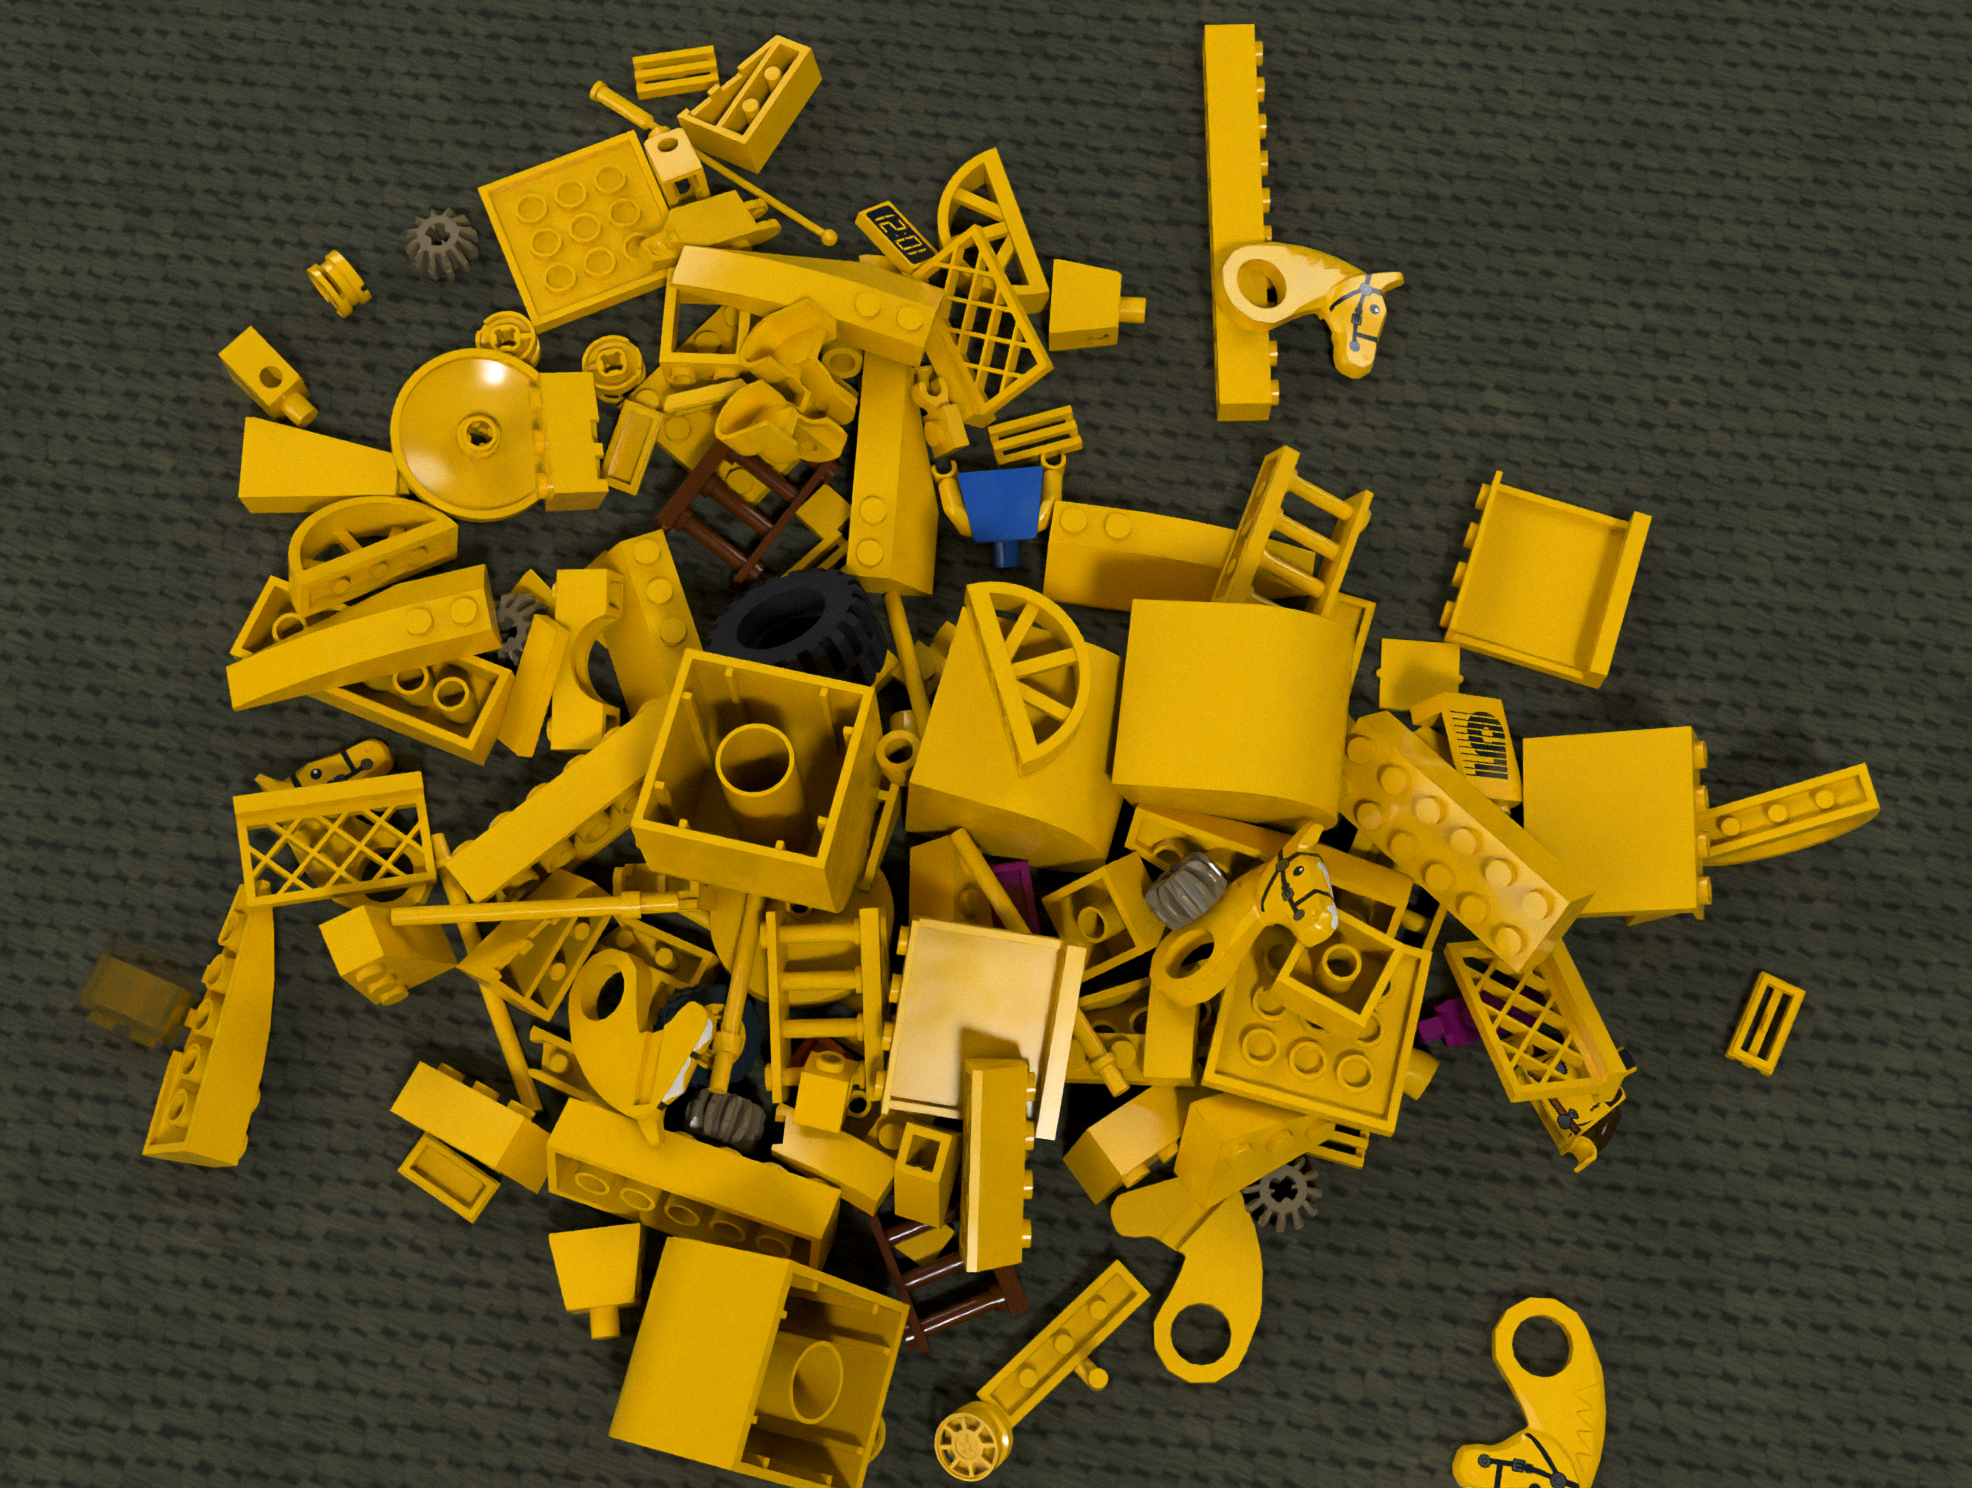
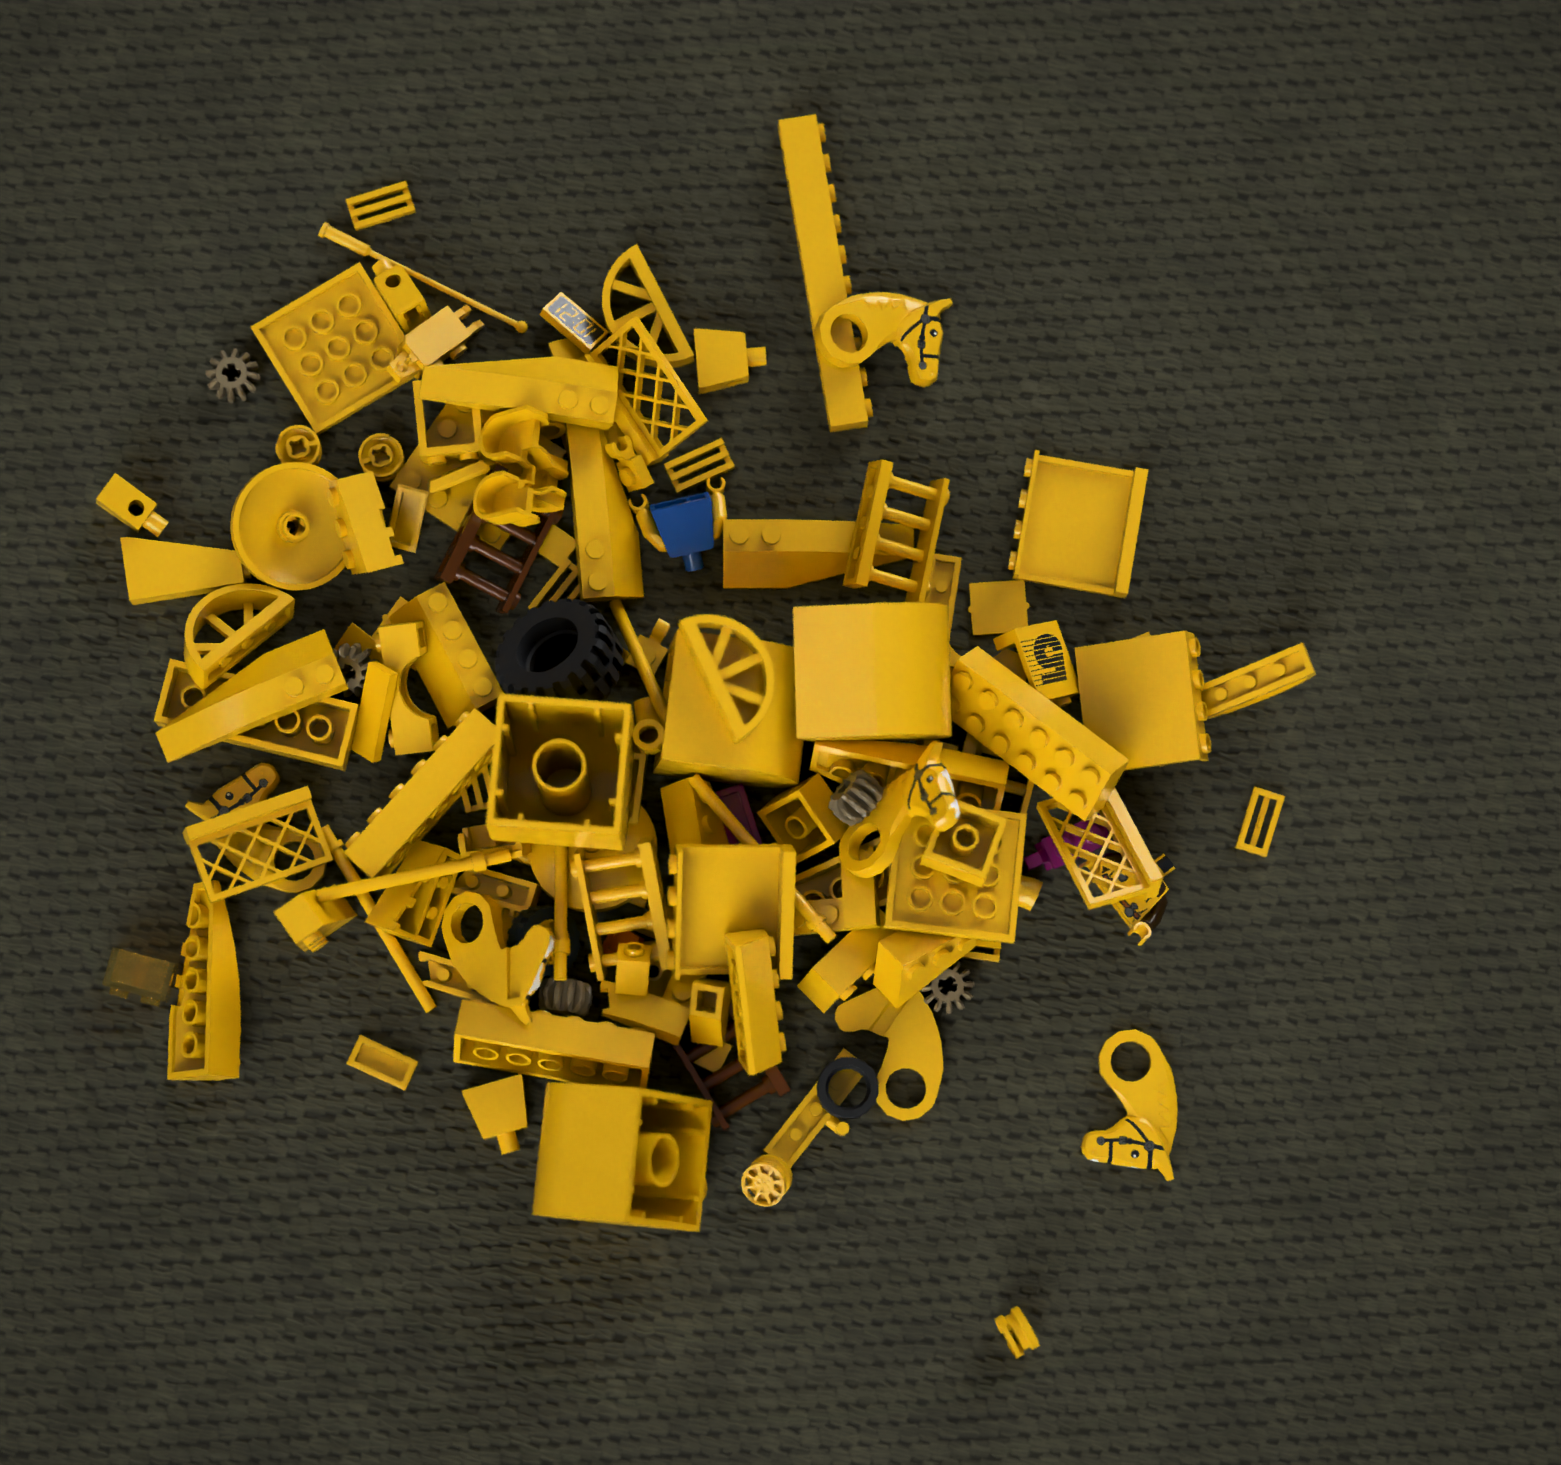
camera: 20 degrees left, 10 degrees up
(338, 283) = (166, 417): yellow wheel -> none
(476, 1123) = (396, 1024): yellow wedge -> none
(756, 106) = (449, 232): yellow wedge -> none
(1151, 1322) = (823, 1088): none -> black tyre

